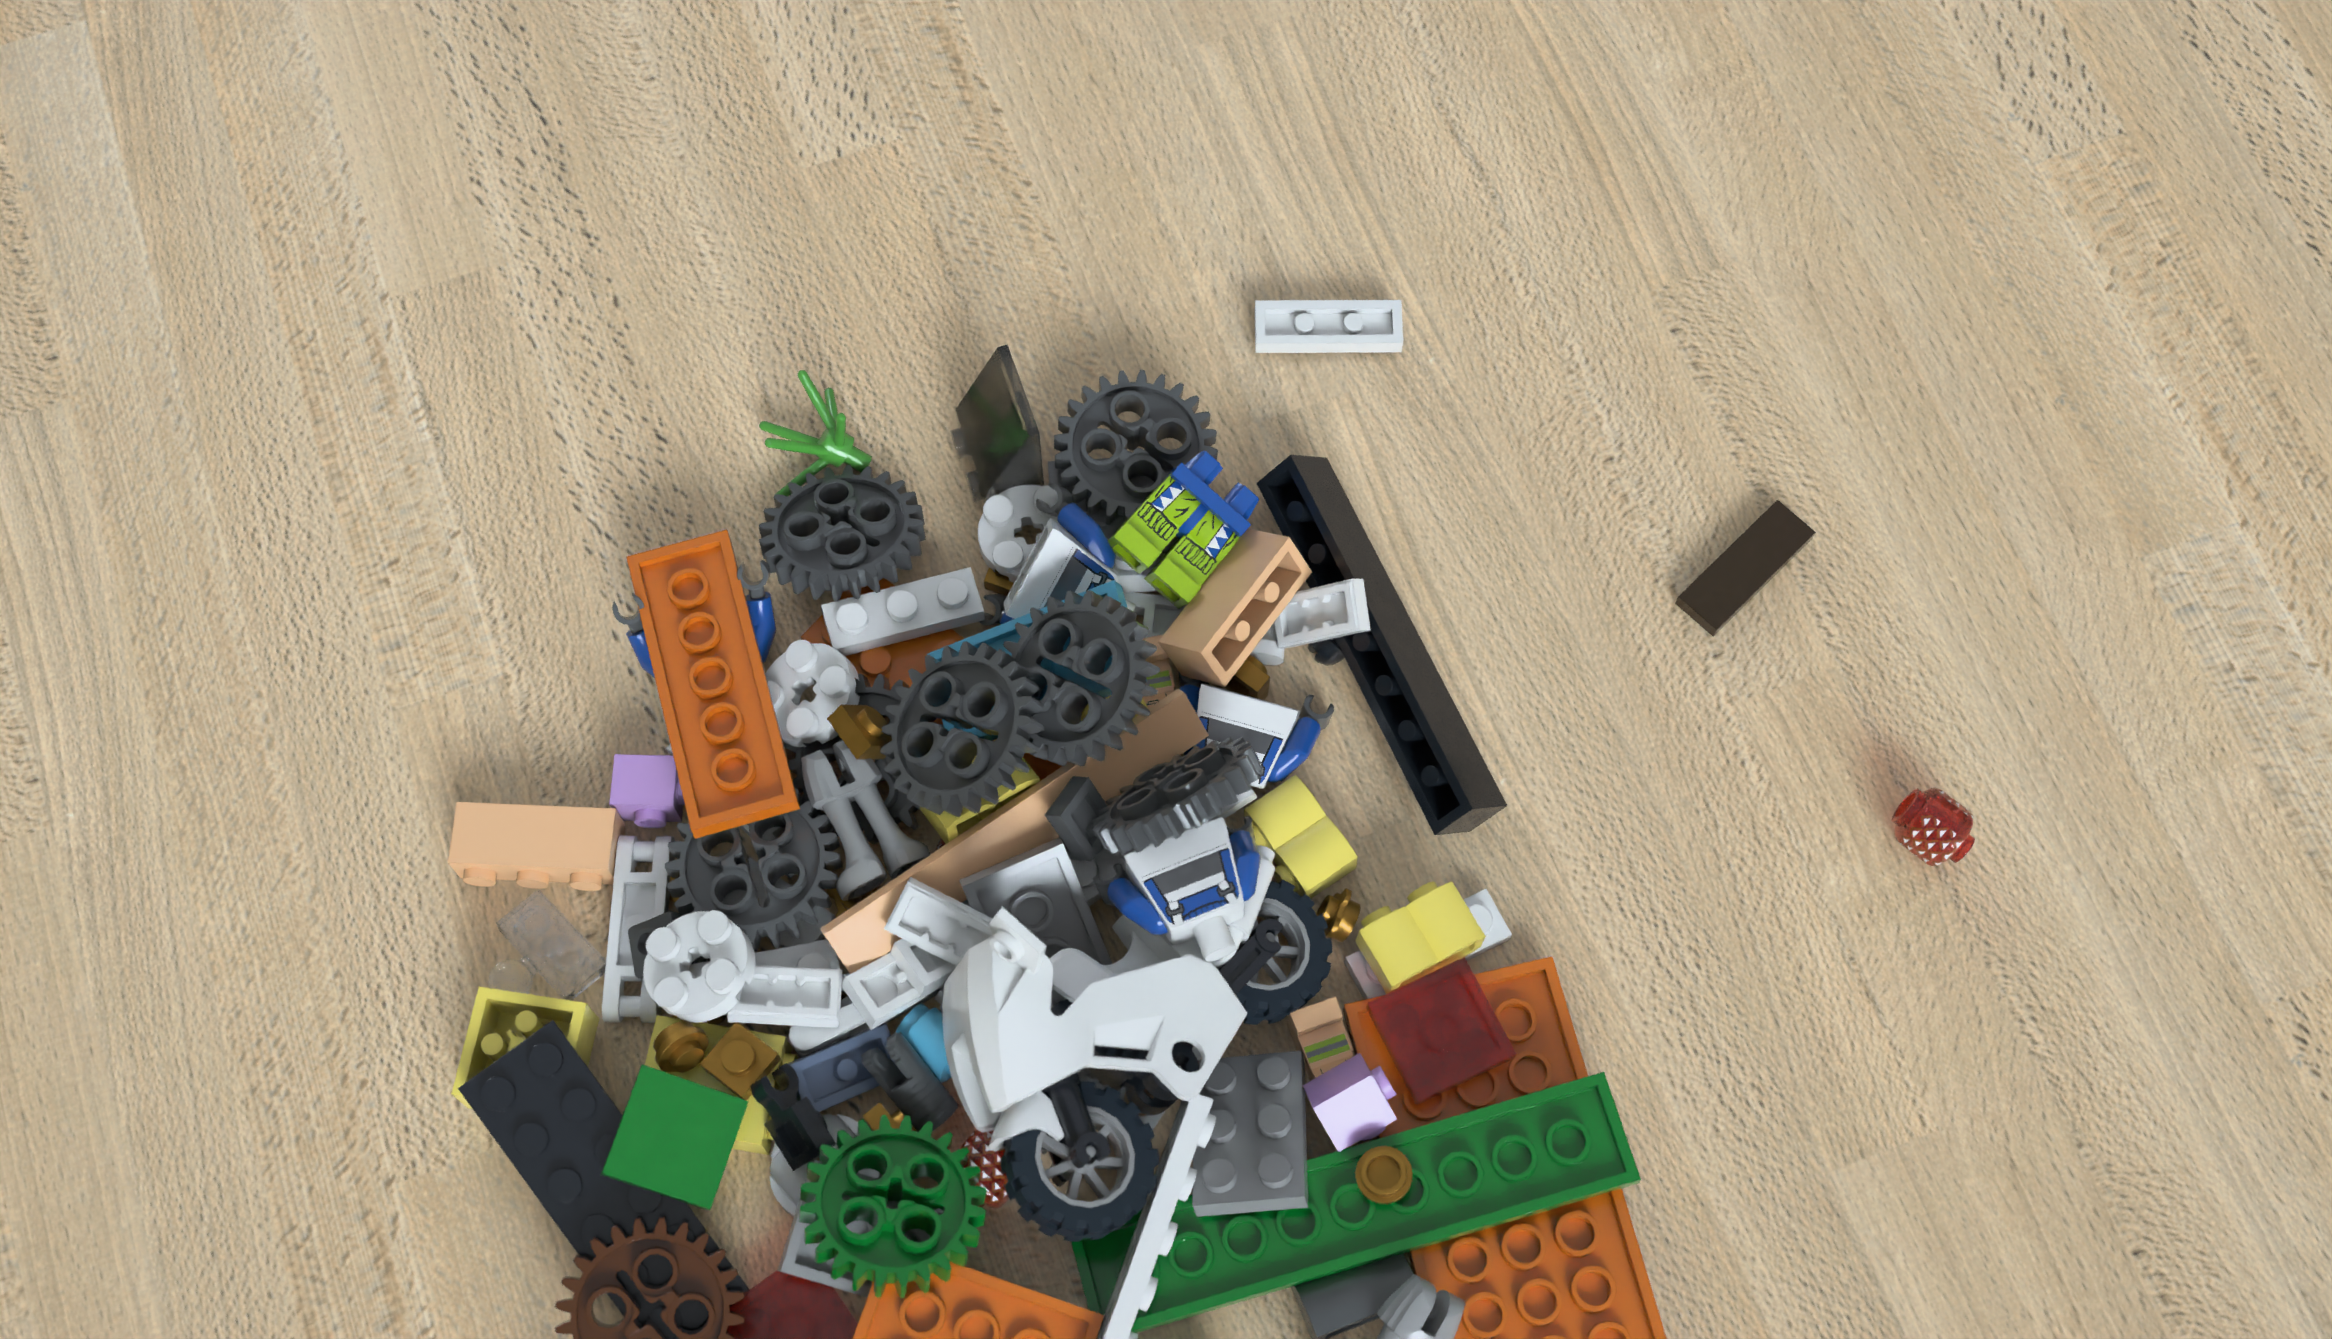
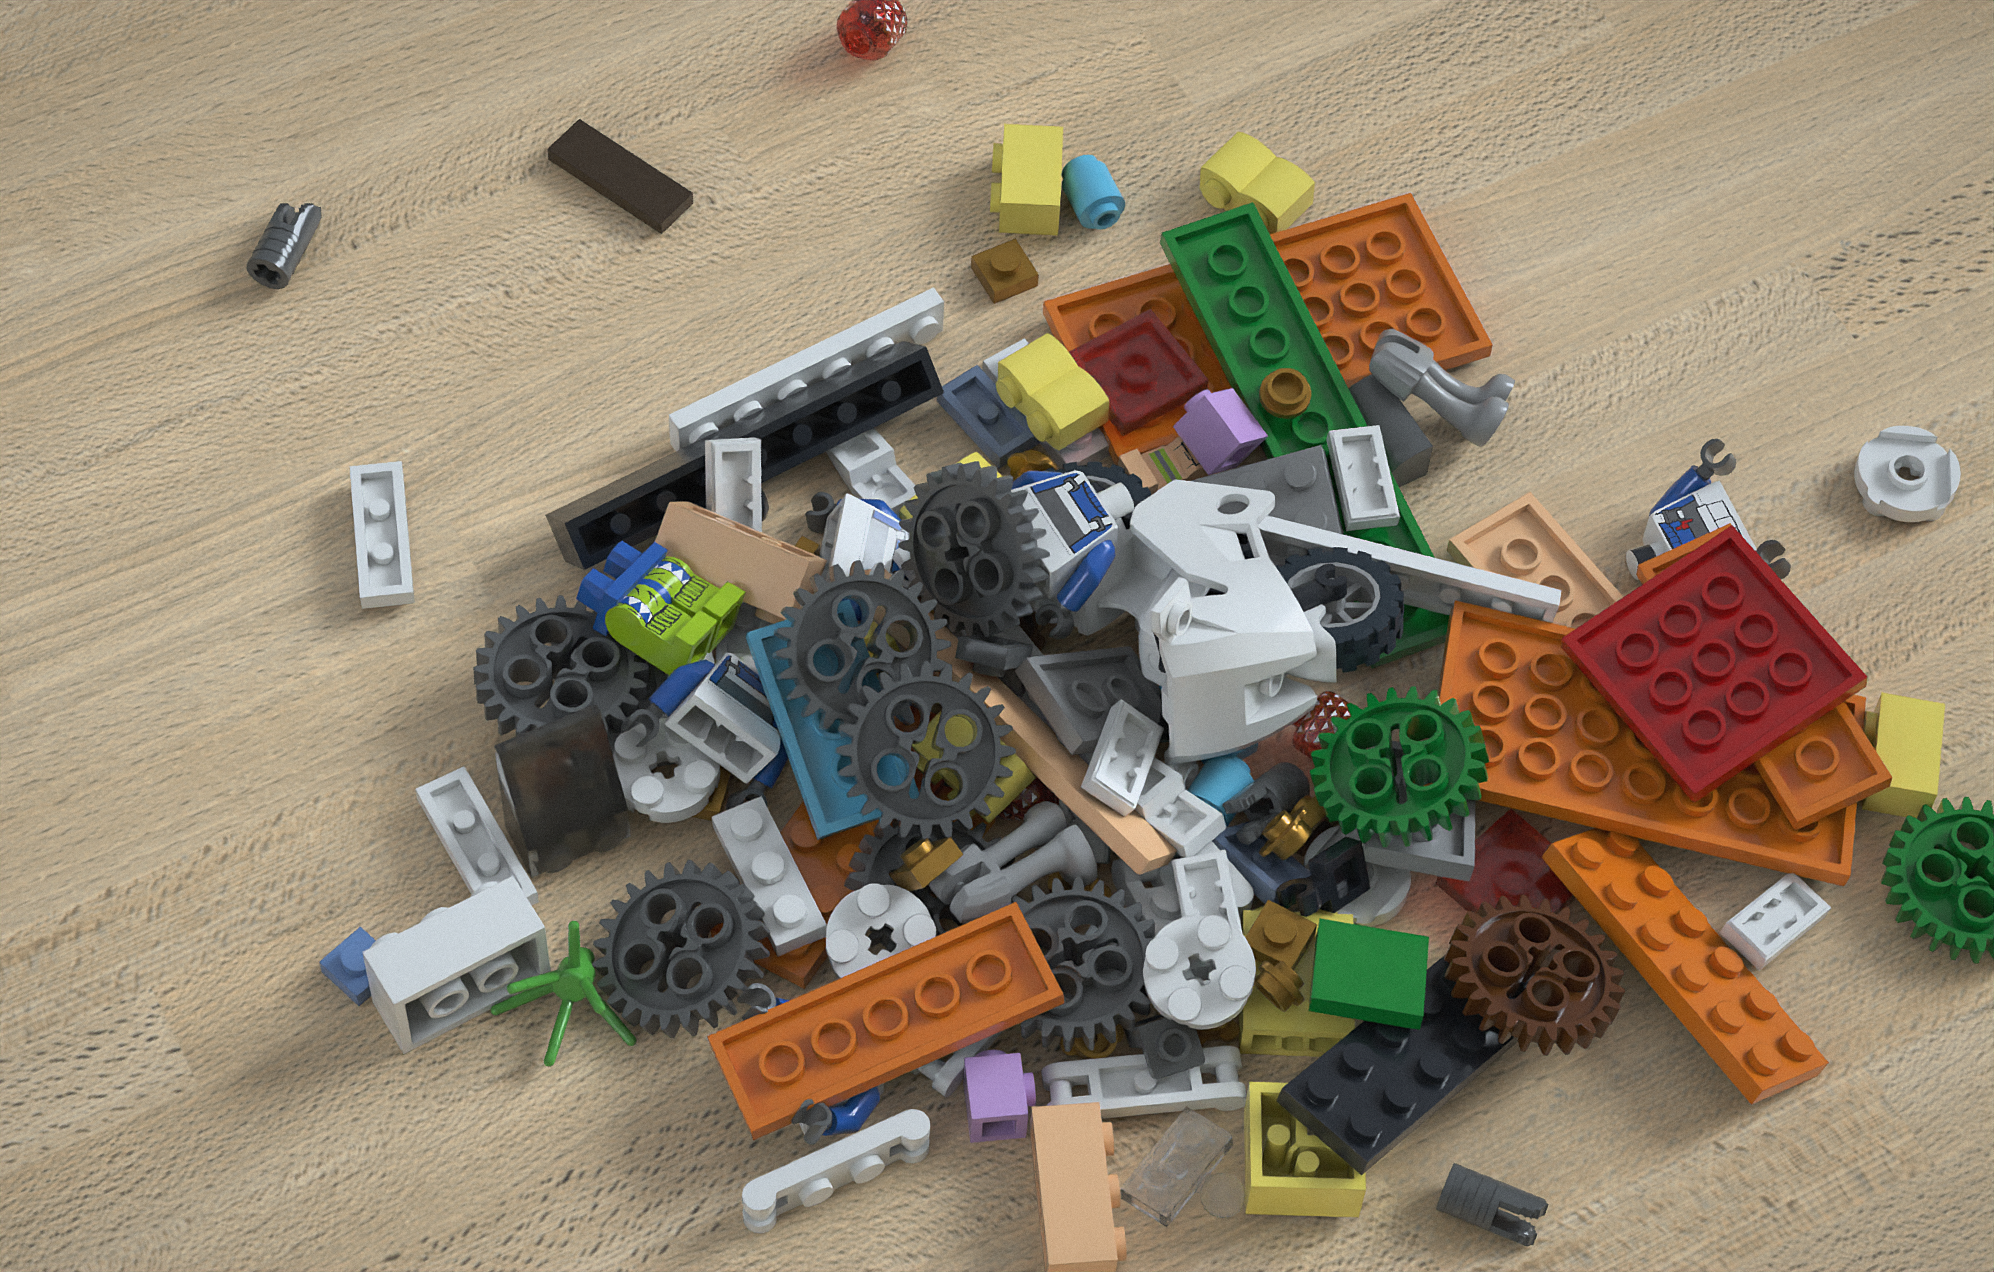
camera: 100 degrees left, 10 degrees down
(444, 1232) = (1477, 1201): none -> dark grey hinge
(611, 662) = (821, 1172): none -> white plate
(853, 344) = (455, 963): none -> white brick
(855, 1088) = (1286, 834): none -> pearl gold plate
(887, 288) = (347, 967): none -> medium blue plate
(942, 391) = (471, 833): none -> white plate
(1271, 1243) = (1363, 478): none -> white plate
(1351, 771) = (871, 470): none -> white slope
(1435, 862) = (985, 417): none -> sand blue plate
(1535, 822) = (911, 321): none -> white plate
(1606, 930) = (1004, 271): none -> pearl gold plate
(1671, 263) = (283, 244): none -> dark grey hinge
(1698, 1030) = (1092, 192): none -> medium azure brick
(1700, 1211) = (1249, 173): none -> light yellow brick
(1719, 965) = (1029, 180): none -> light yellow brick

